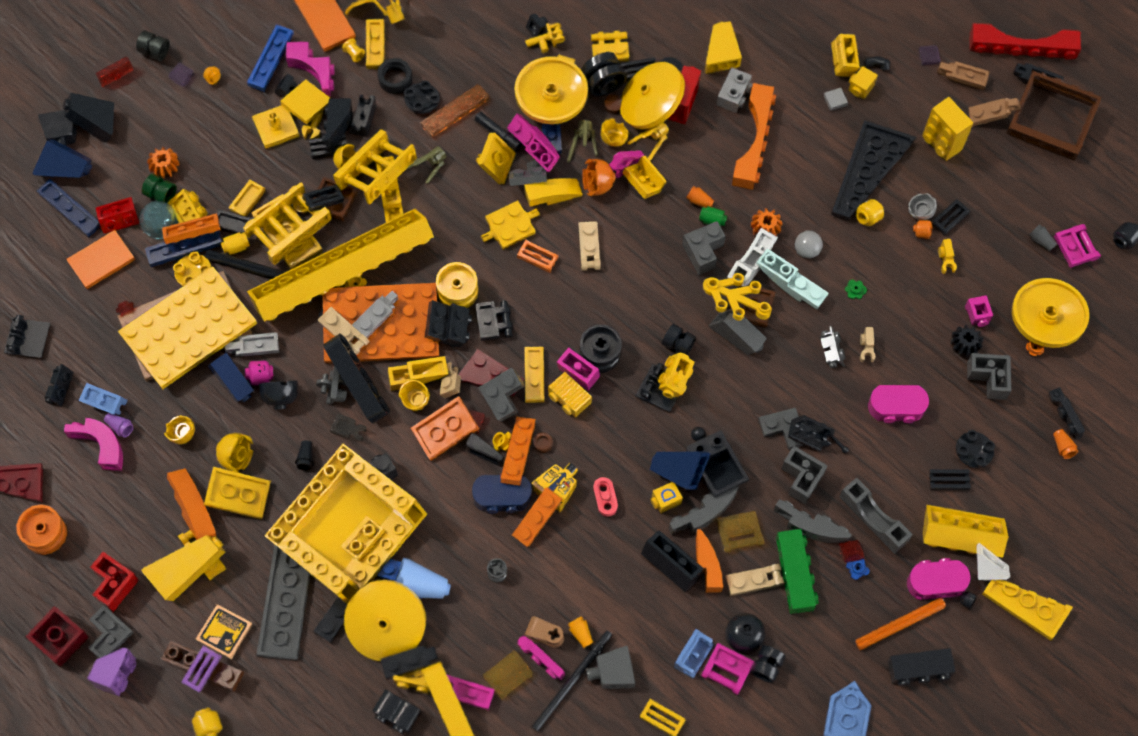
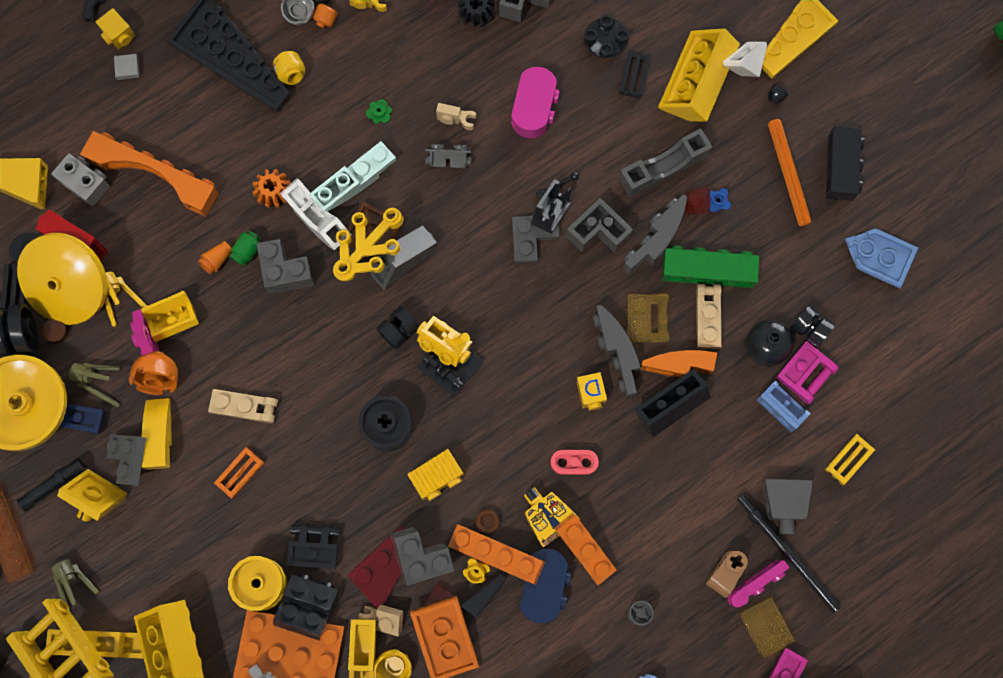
camera: 75 degrees left, 10 degrees up
(510, 224) = (187, 498): yellow plate -> none
(534, 374) = (396, 512): yellow tile -> none
(535, 142) = (84, 439): dark pink slope -> none
(578, 368) = (407, 456): dark pink brick -> none
(580, 631) = (733, 529): light orange cone -> none
(613, 133) = (98, 339): yellow hair -> none
(680, 467) = (562, 365): dark blue slope -> none
(722, 468) = (568, 320): black slope -> none
(808, 244) = (310, 148): light grey hair -> none
(845, 55) = (73, 37): yellow brick -> none
(938, 579) = (749, 118): dark pink brick -> none

